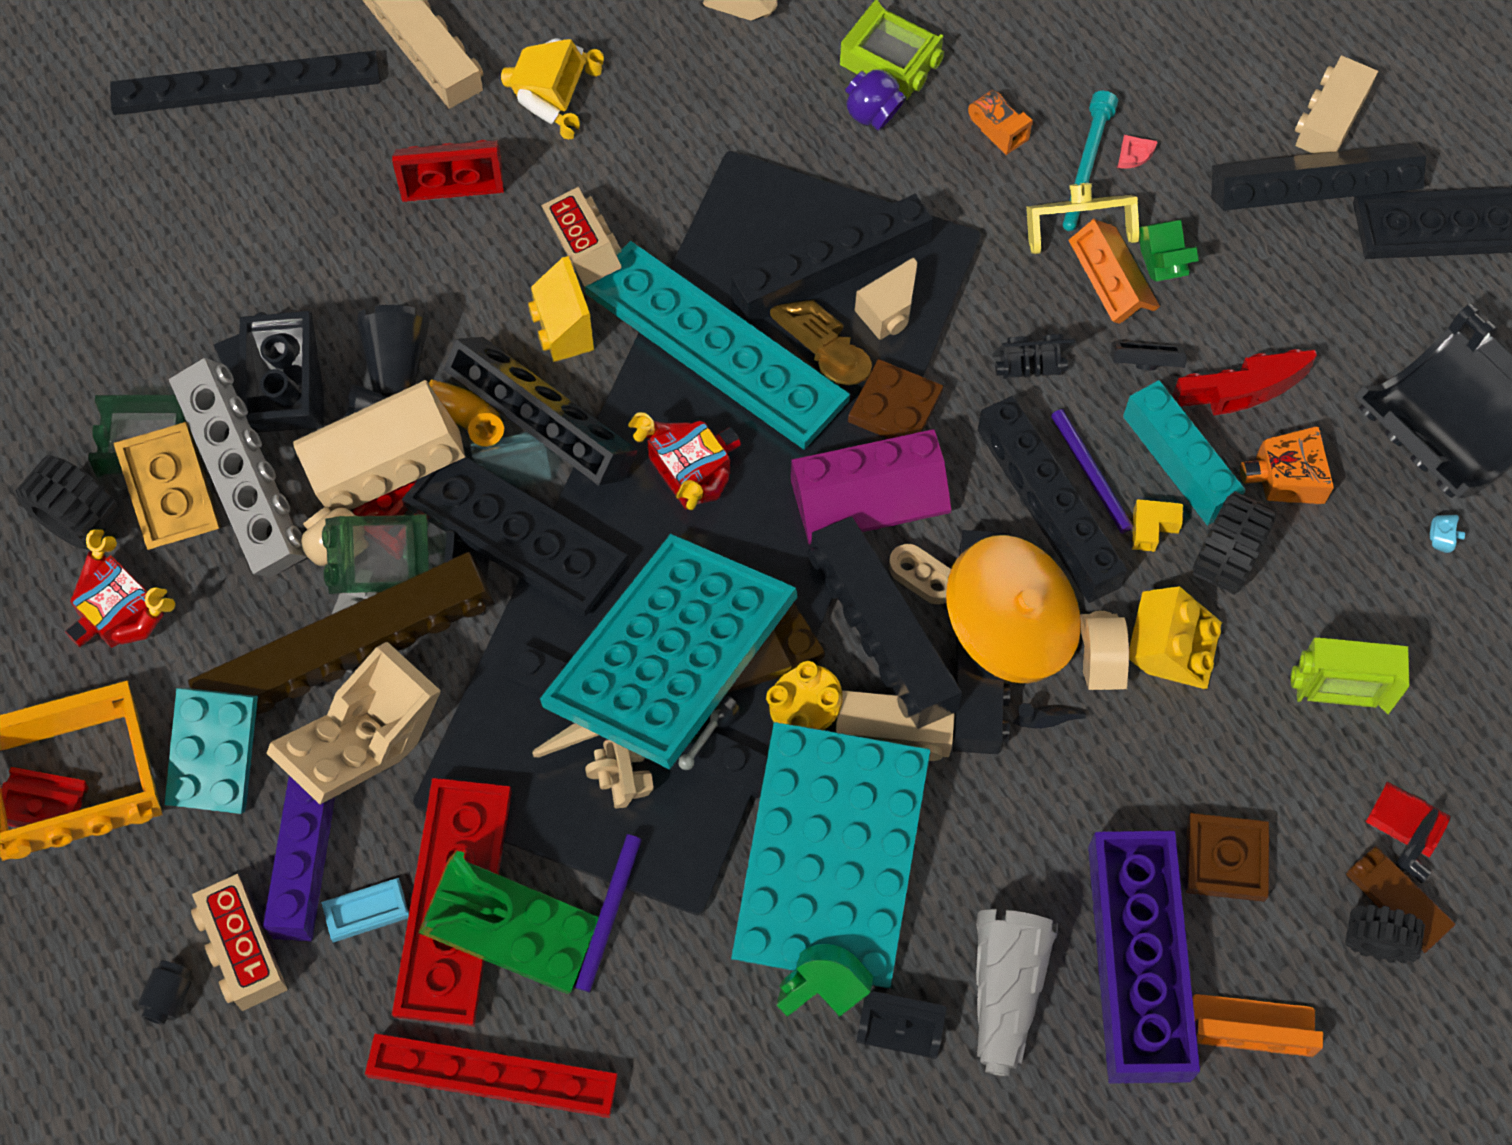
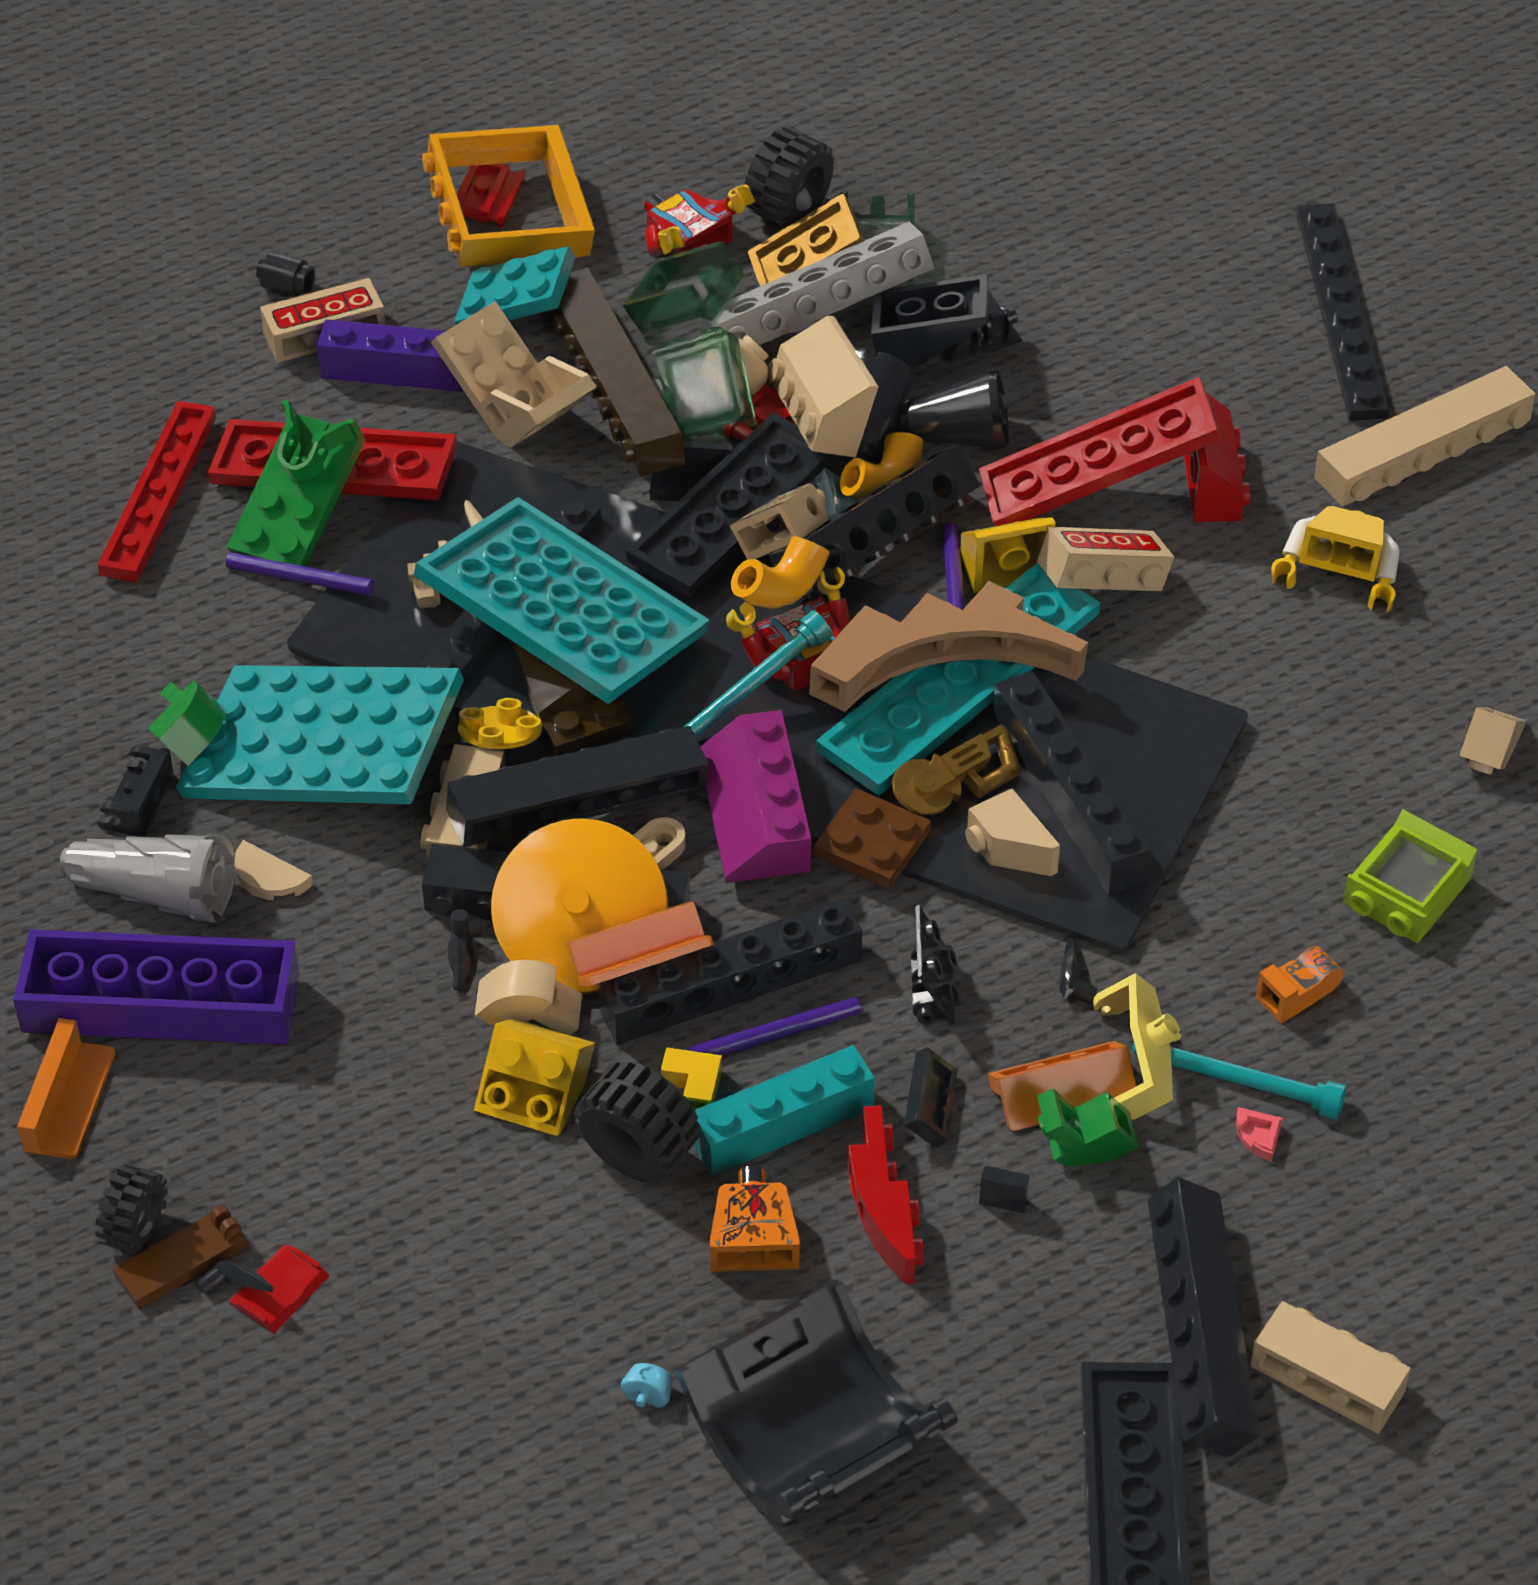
camera: 95 degrees right, 15 degrees down
(222, 590) = (684, 287): none -> clear green window
(365, 910) = (341, 401): medium azure tile -> none
(464, 234) = (1100, 453): none -> red plate
(555, 475) = (798, 514): none -> tan torso
(592, 357) = (953, 565): none -> dark purple bar
(651, 455) = (786, 581): none -> light orange cylinder
(706, 438) = (812, 631): none -> teal piece
(710, 384) = (937, 632): none -> medium nougat arch
(722, 717) = (492, 655): hinge -> none
(874, 98) = (1321, 846): dark purple piece -> none
(981, 890) = (268, 875): none -> tan tile
(1009, 269) = (1068, 981): none -> black bar
(1062, 553) = (637, 944): none -> orange panel
(1225, 303) = (1004, 1189): none -> black tile
(1227, 857) = (259, 1092): reddish brown plate -> none
(1352, 673) = (451, 1225): lime window -> none

